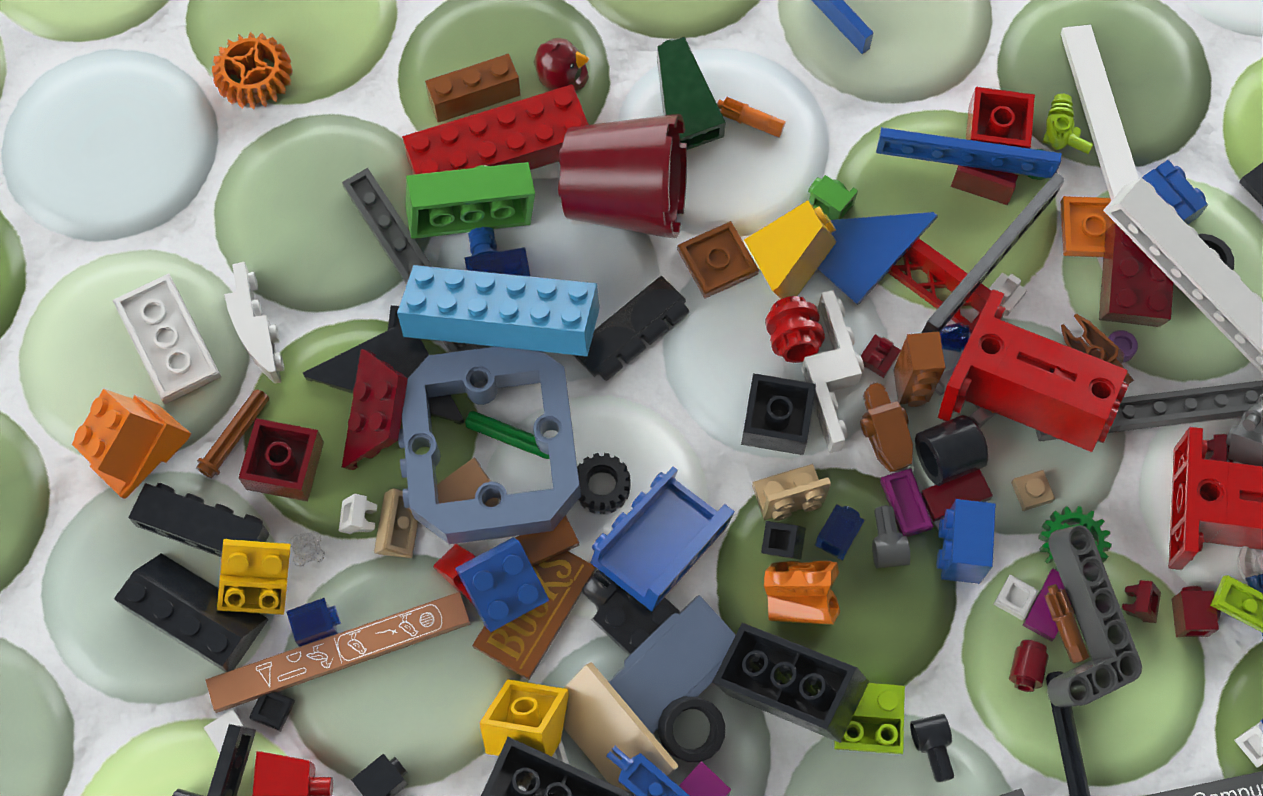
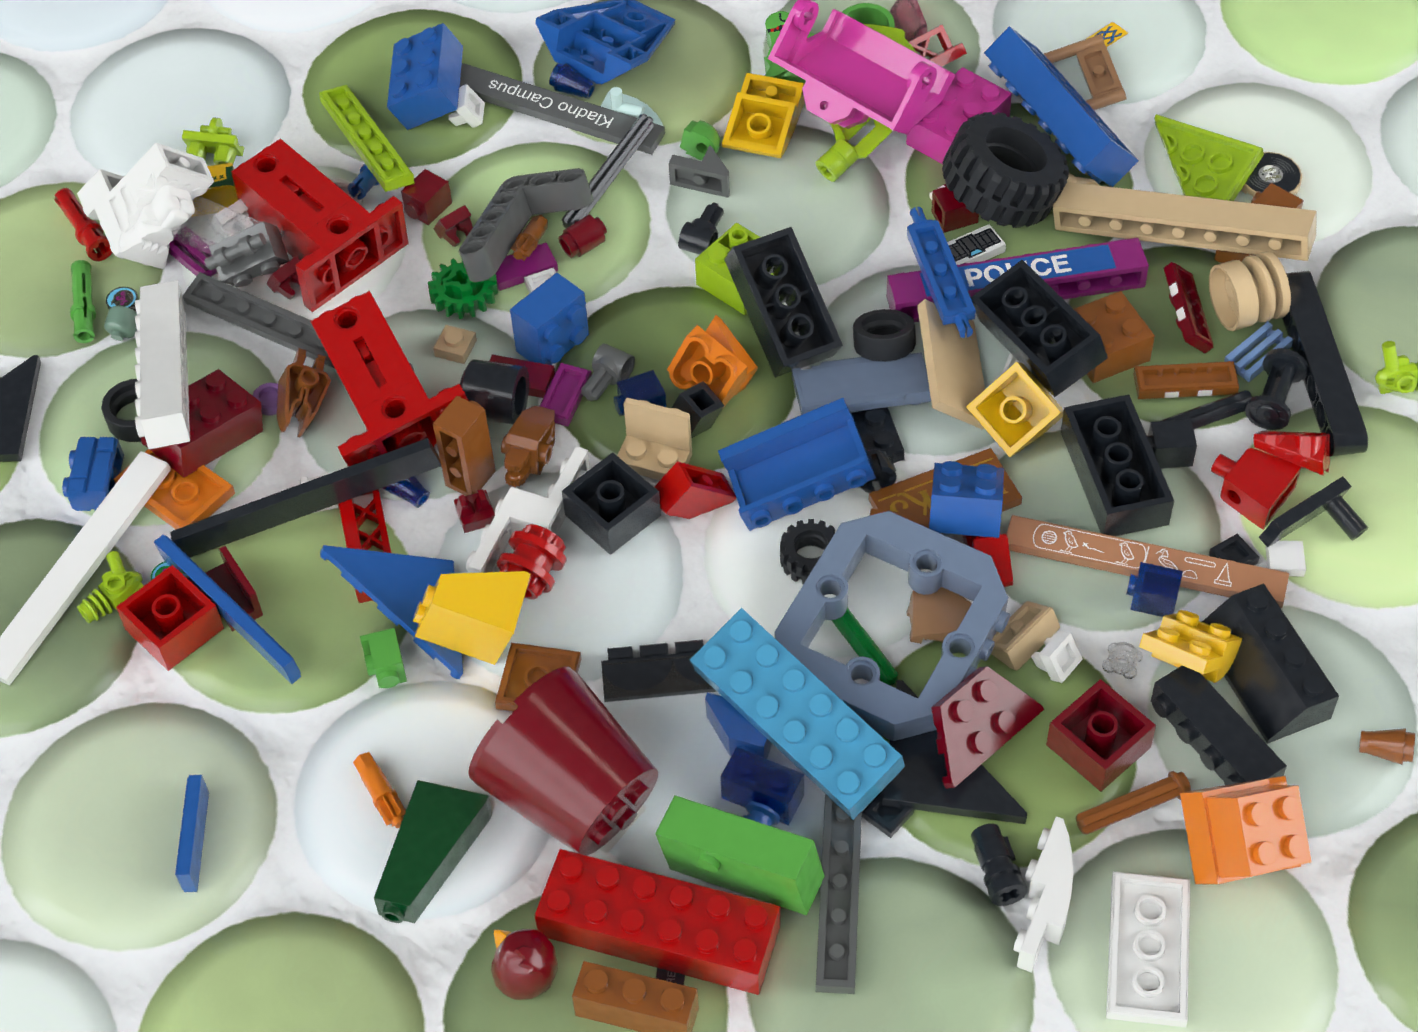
camera: 140 degrees left, 15 degrees down
(64, 602) = (1391, 745): none -> dark orange cone
(303, 326) = (996, 860): none -> black axle
(409, 717) = (1116, 466): none -> black brick
(729, 473) = (692, 491): none -> red slope

